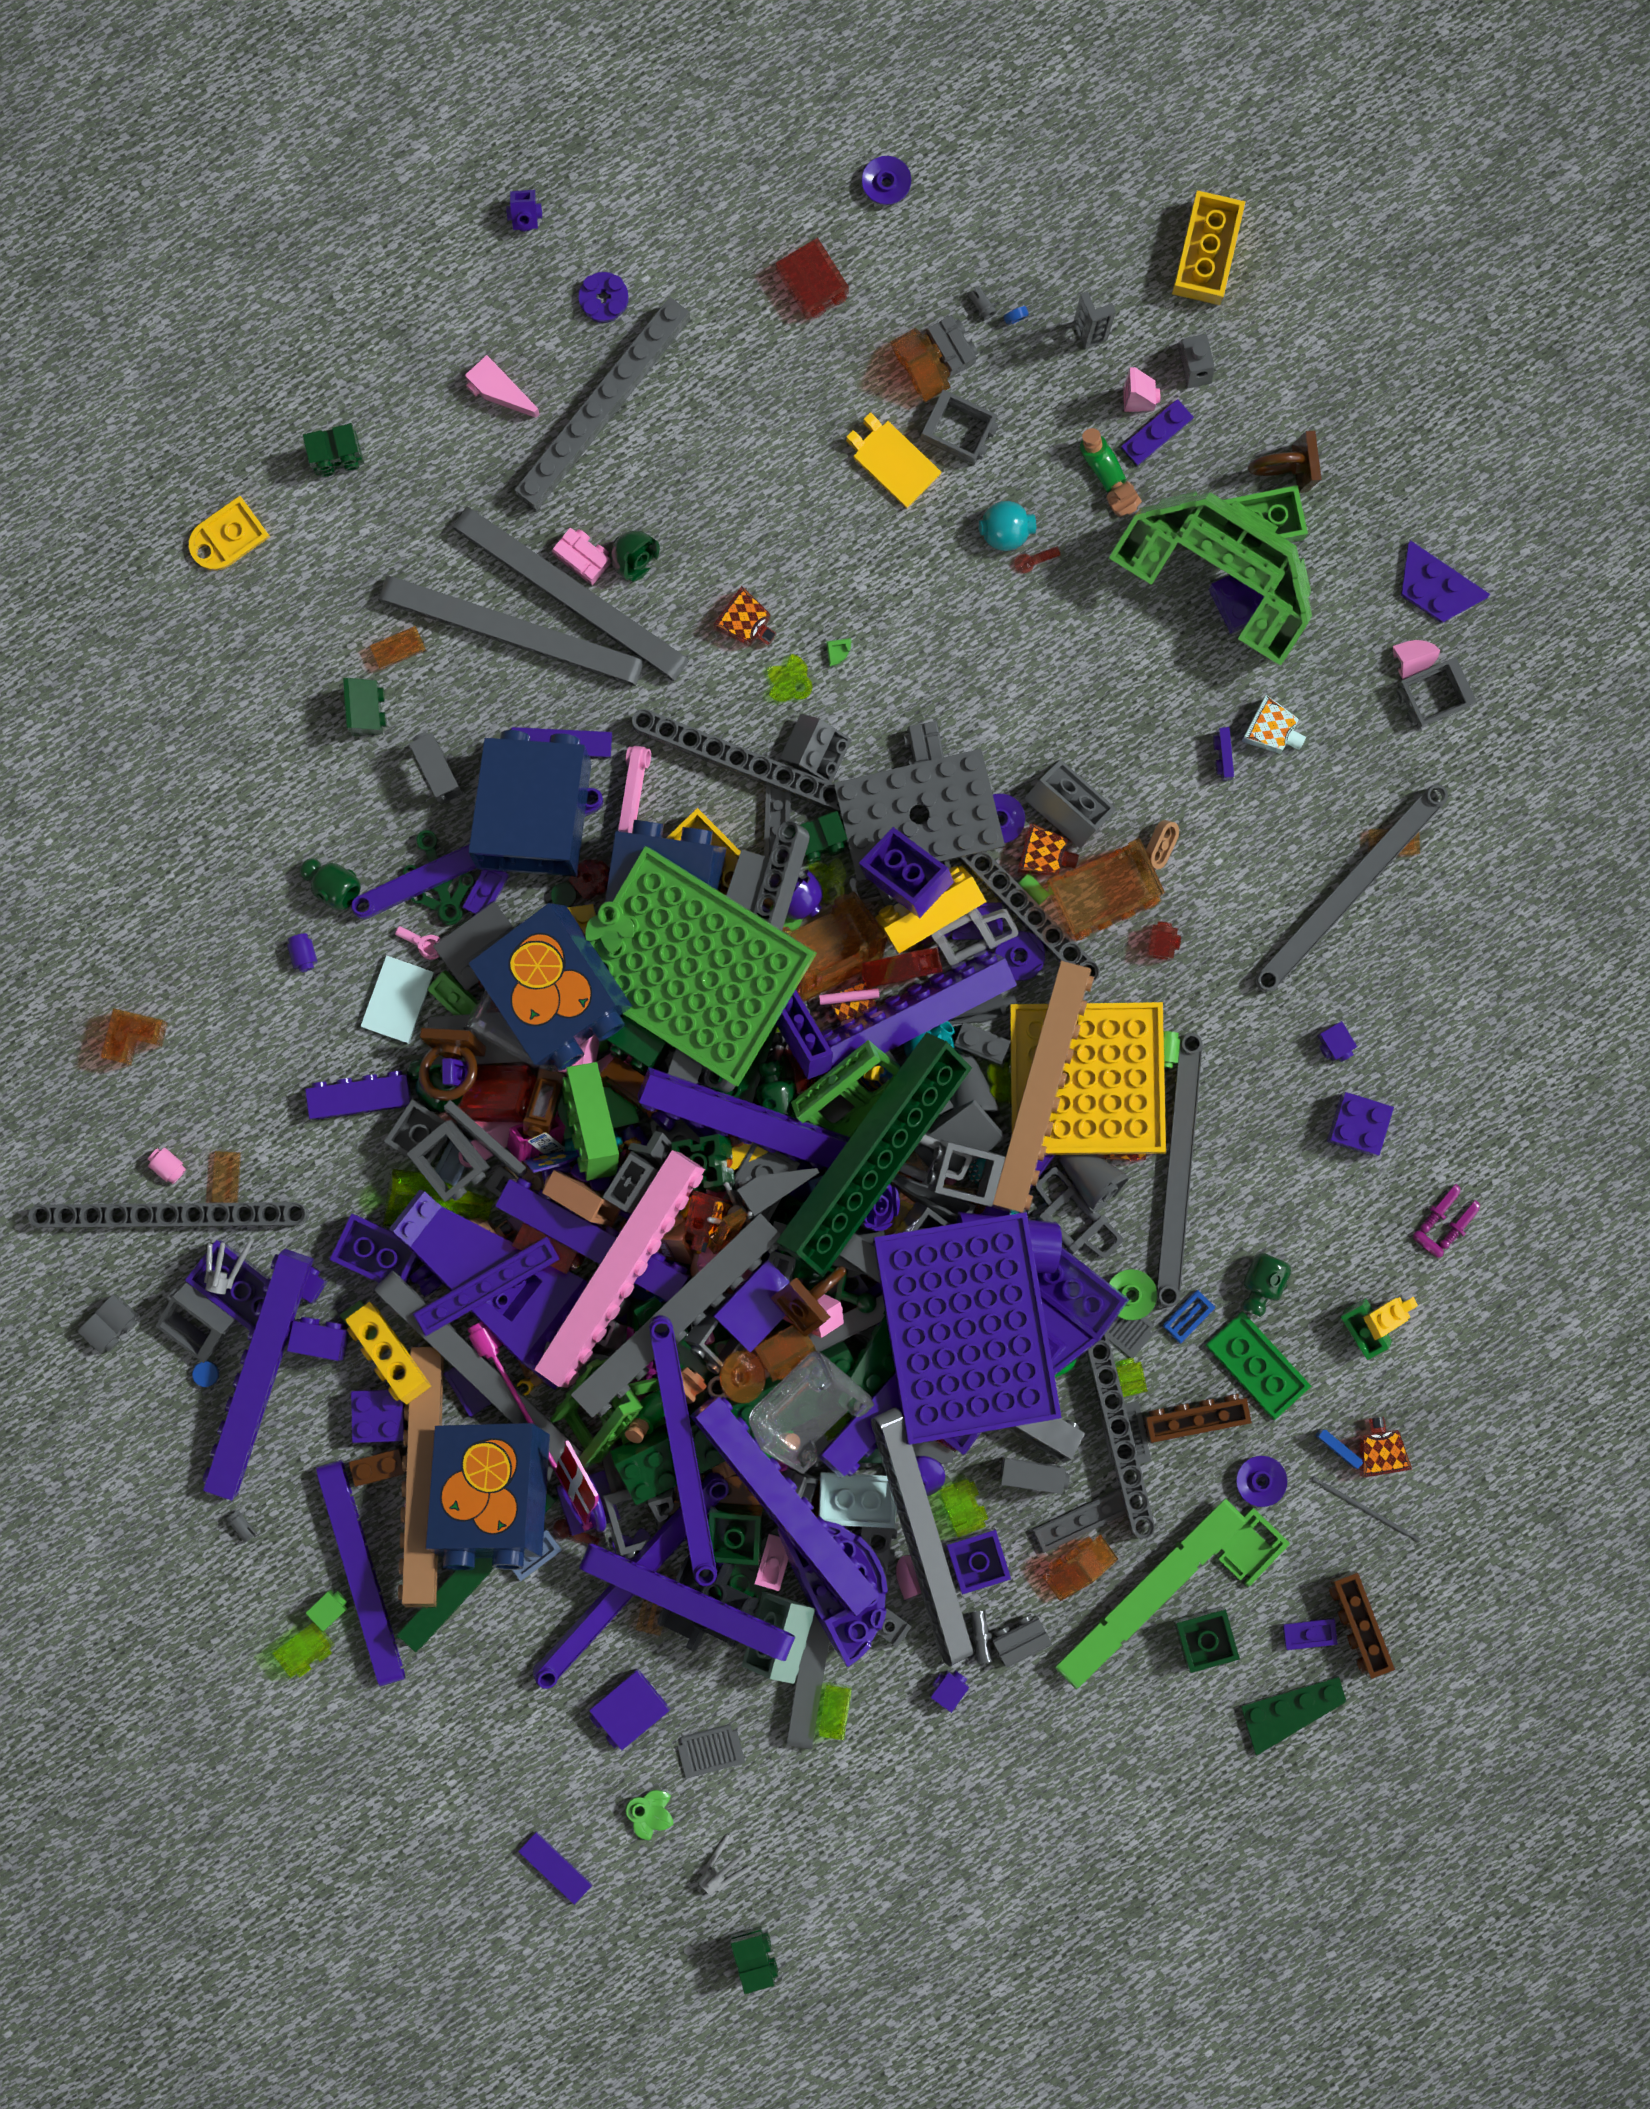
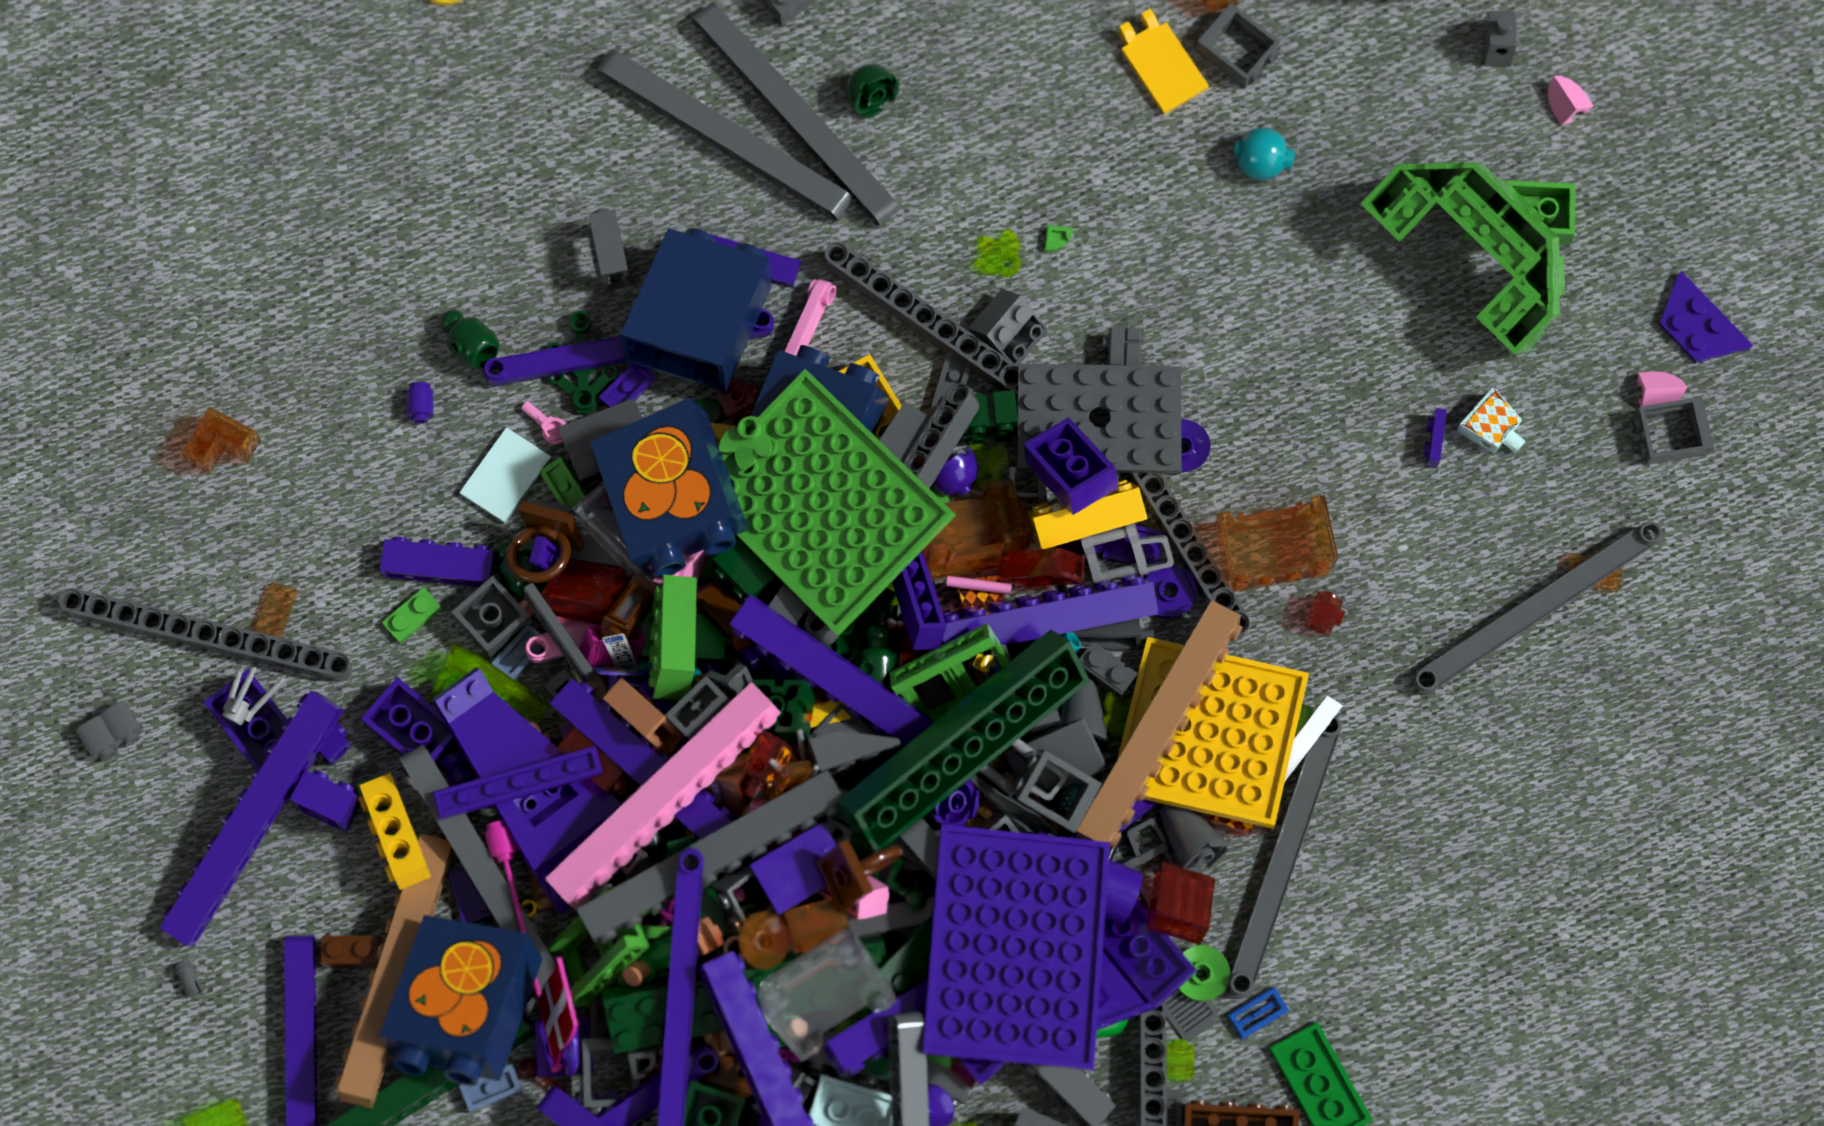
camera: 15 degrees right, 10 degrees down
(166, 1165) = (217, 583): bright pink brick -> none
(187, 1334) = (187, 761): dark grey window -> none
(205, 1374) = (196, 810): blue tile -> none
(327, 1609) = (255, 1089): bright green brick -> none
(348, 1149) = (411, 615): none -> bright green plate
(364, 706) = (552, 172): dark green slope -> none
(377, 1417) = (364, 898): dark purple brick -> none
(397, 648) = (603, 124): clear orange plate -> none
(451, 1130) = (502, 620): dark grey window -> none
(581, 555) = (816, 78): bright pink brick -> none
(745, 620) = (968, 182): torso -> none
(1024, 563) = (1274, 197): clear red bar -> none
(1034, 889) = (1202, 526): bright green piece -> none
(1045, 853) = (1221, 491): torso -> none
(1070, 803) = (1260, 448): dark grey slope -> none
(1099, 1241) = (1181, 903): none -> clear red brick
(1105, 465) = (1382, 125): piece -> none
(1140, 392) = (1433, 54): bright pink slope -> none
(1157, 432) = (1442, 101): dark purple plate -> none
(1162, 843) = (1348, 512): medium nougat plate -> none
(1178, 1053) = (1312, 731): none -> white sticker
(1235, 601) = (1481, 282): dark purple brick -> none
(1266, 1280) = (1350, 994): dark green piece -> none
(1270, 402) = (1567, 99): none -> bright pink brick
(1302, 462) = (1586, 162): reddish brown tile -> none
(1337, 1043) = (1485, 763): dark purple brick -> none
(1359, 1330) = (1446, 1072): green brick -> none
(1360, 1124) = (1490, 854): dark purple brick -> none
(1389, 1316) = (1474, 1063): yellow hinge -> none
(1438, 1212) = (1552, 970): magenta piece -> none

